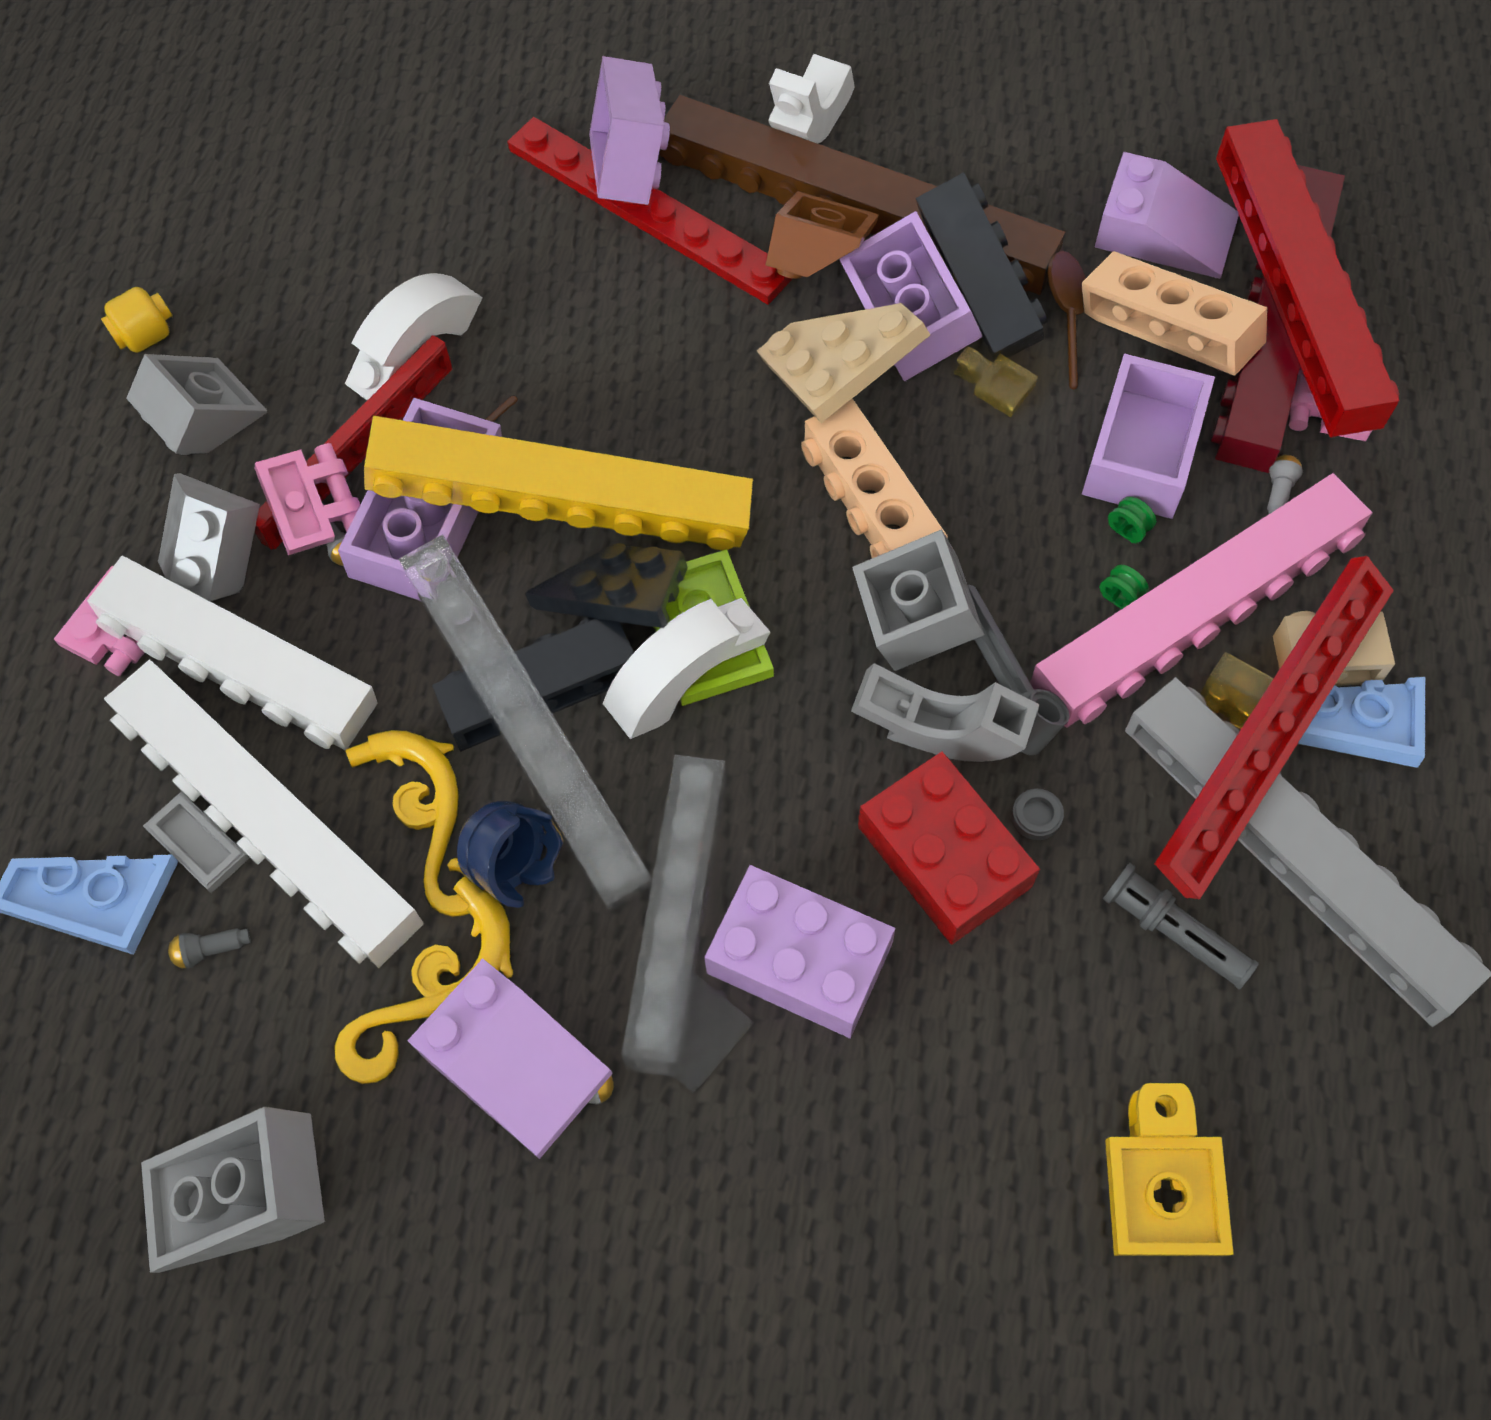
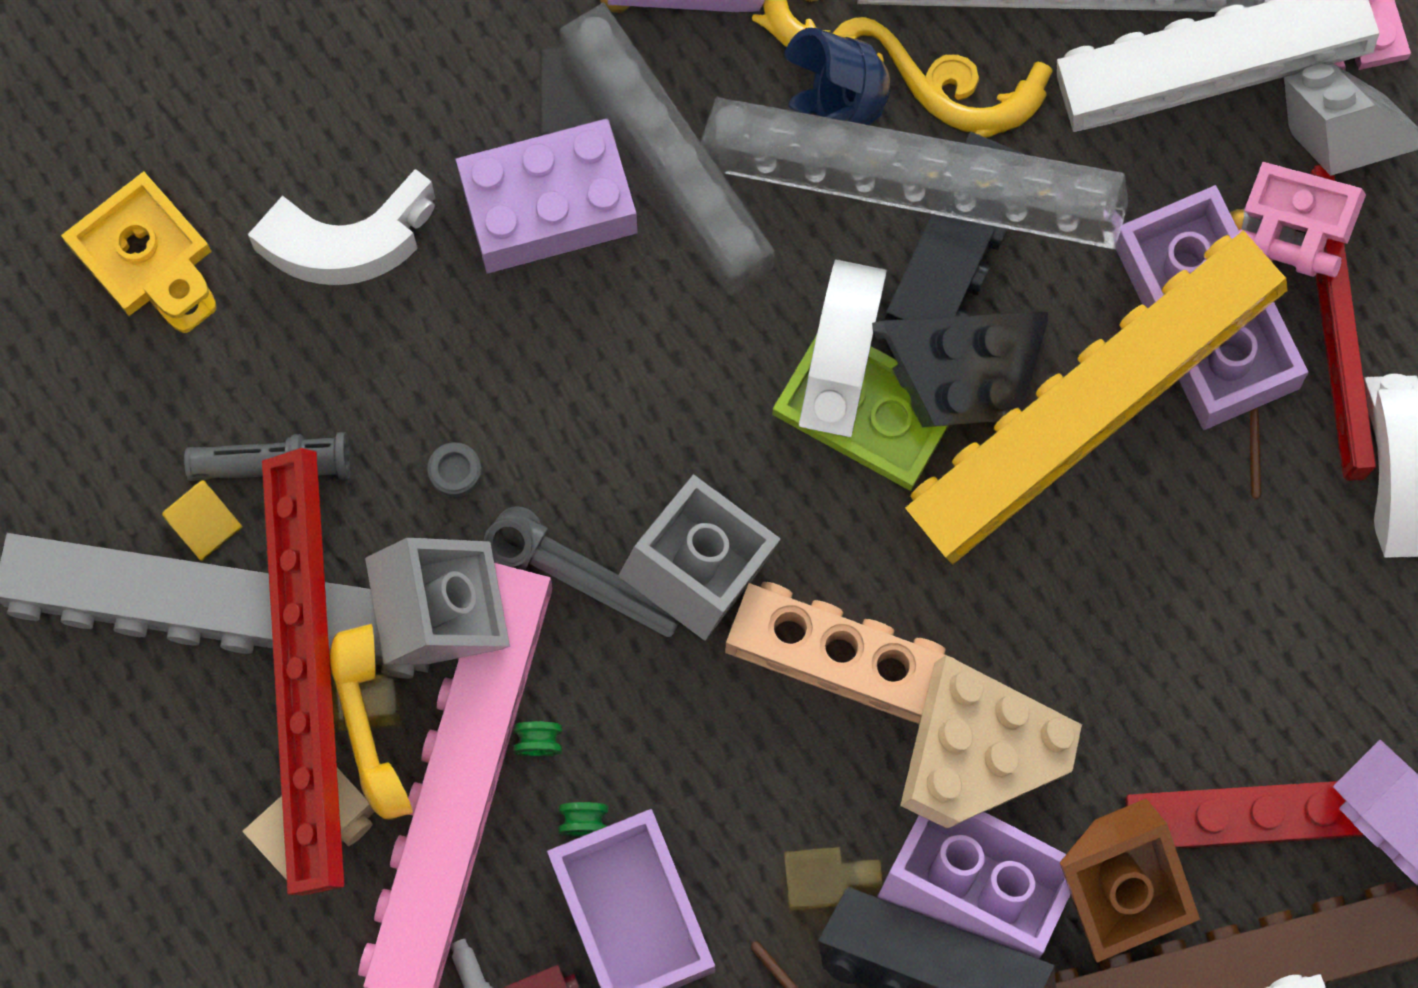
camera: 135 degrees right, 10 degrees up
(947, 847) = (500, 368): red piece -> none
(963, 727) = (574, 481): light grey arch -> none
(1000, 1039) = (345, 252): none -> white arch
(1142, 693) = (436, 600): none -> light grey slope
(1237, 696) = (350, 664): none -> yellow piece
(1267, 925) = (201, 520): none -> yellow slope
(1373, 722) = (229, 783): light blue wing -> none

